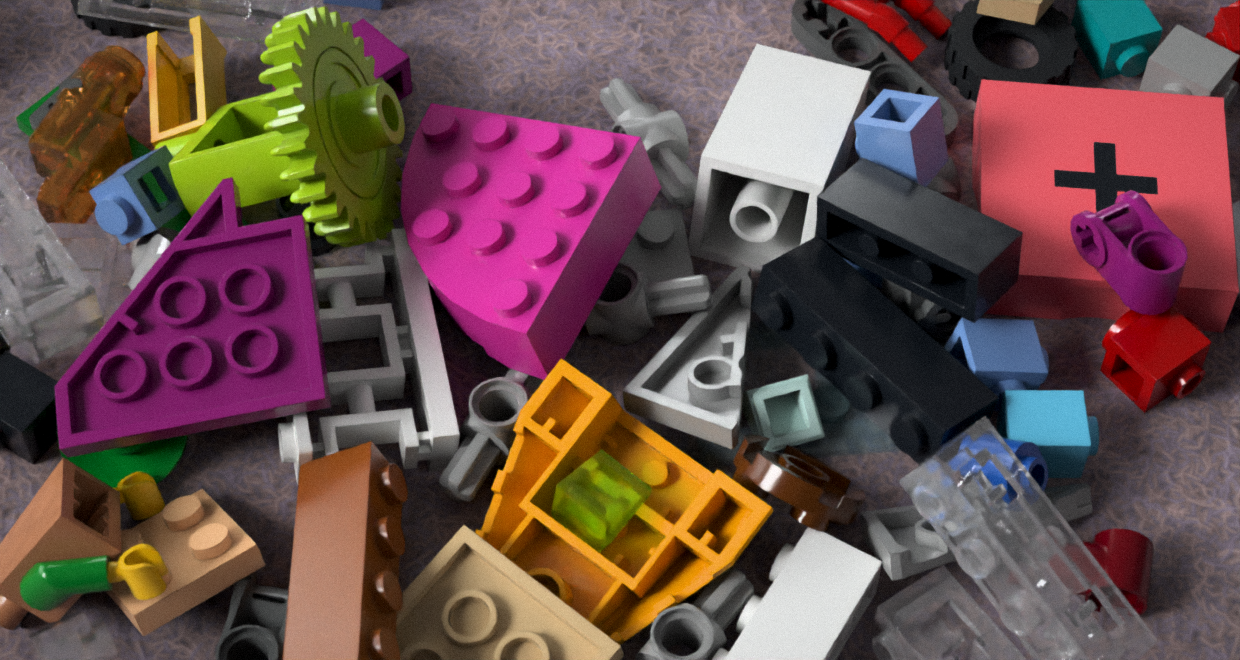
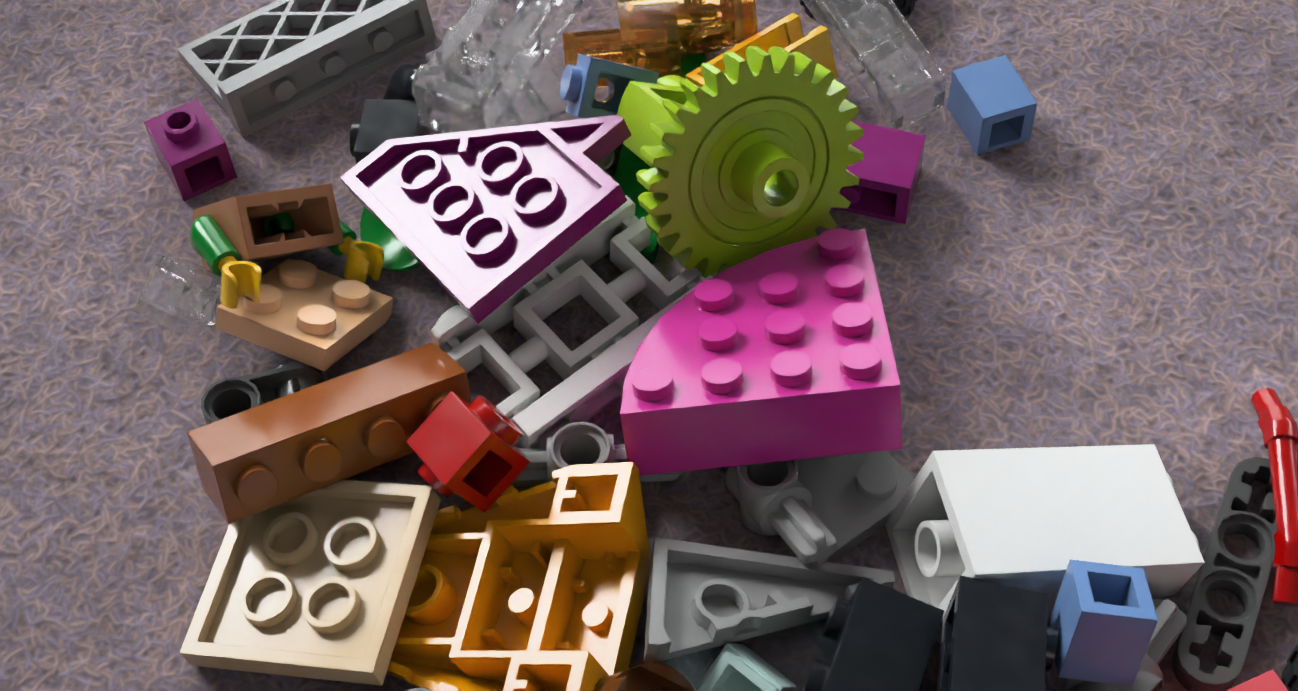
camera: 65 degrees right, 0 degrees up
(451, 476) = (469, 450): none -> red brick
(598, 500) = (529, 579): clear neon green slope -> none
(662, 137) = (985, 410): light grey axle -> none

